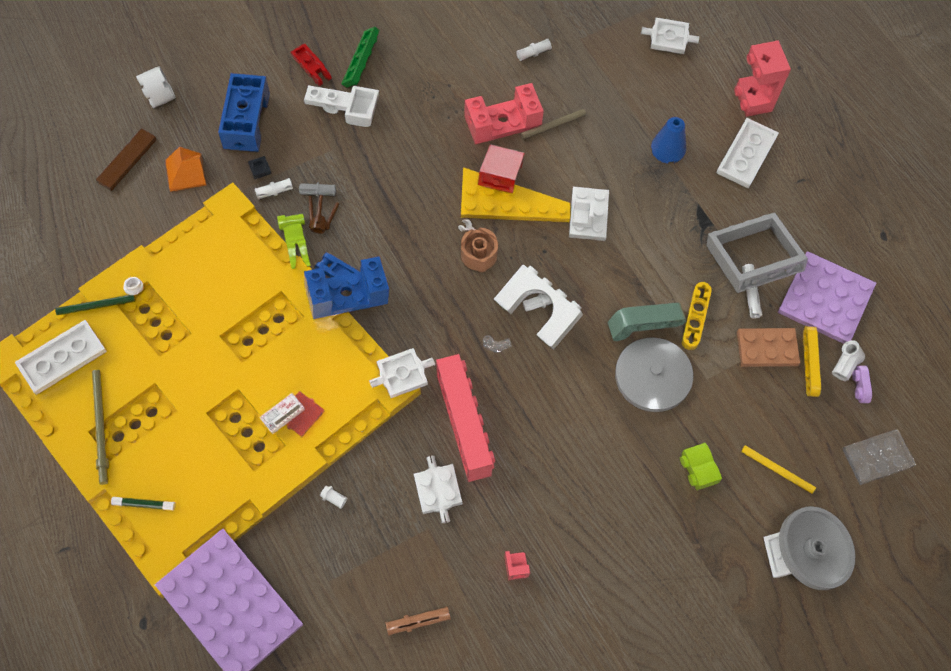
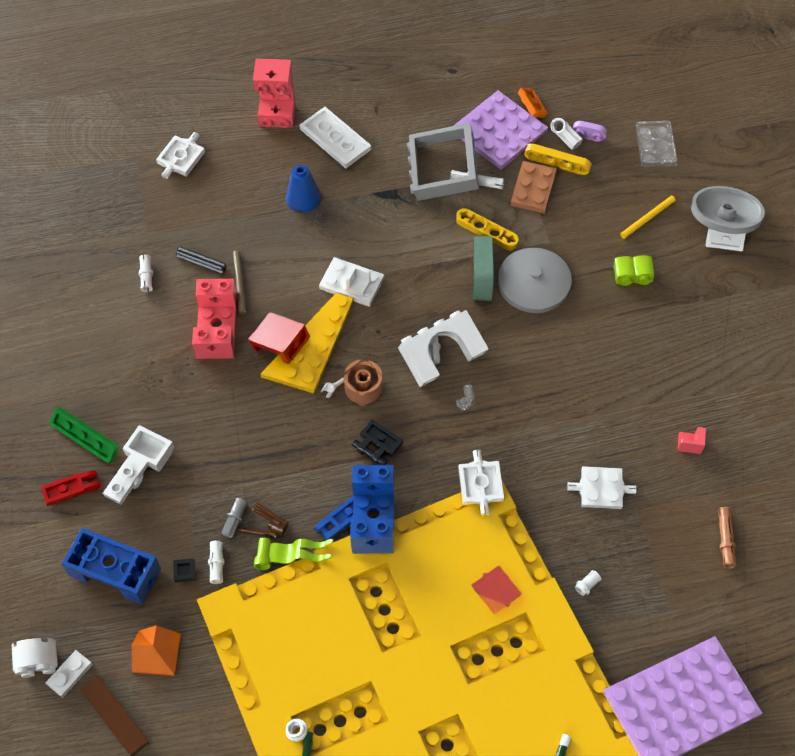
camera: 70 degrees left, 5 degrees down
(154, 118) = (69, 673): none -> white plate
(282, 413) = (494, 604): tile -> none
(429, 282) = (380, 437): none -> black plate
(464, 418) = (542, 441): coral brick -> none
(564, 87) = (200, 259): none -> axle
(874, 319) = (532, 102): none -> orange plate

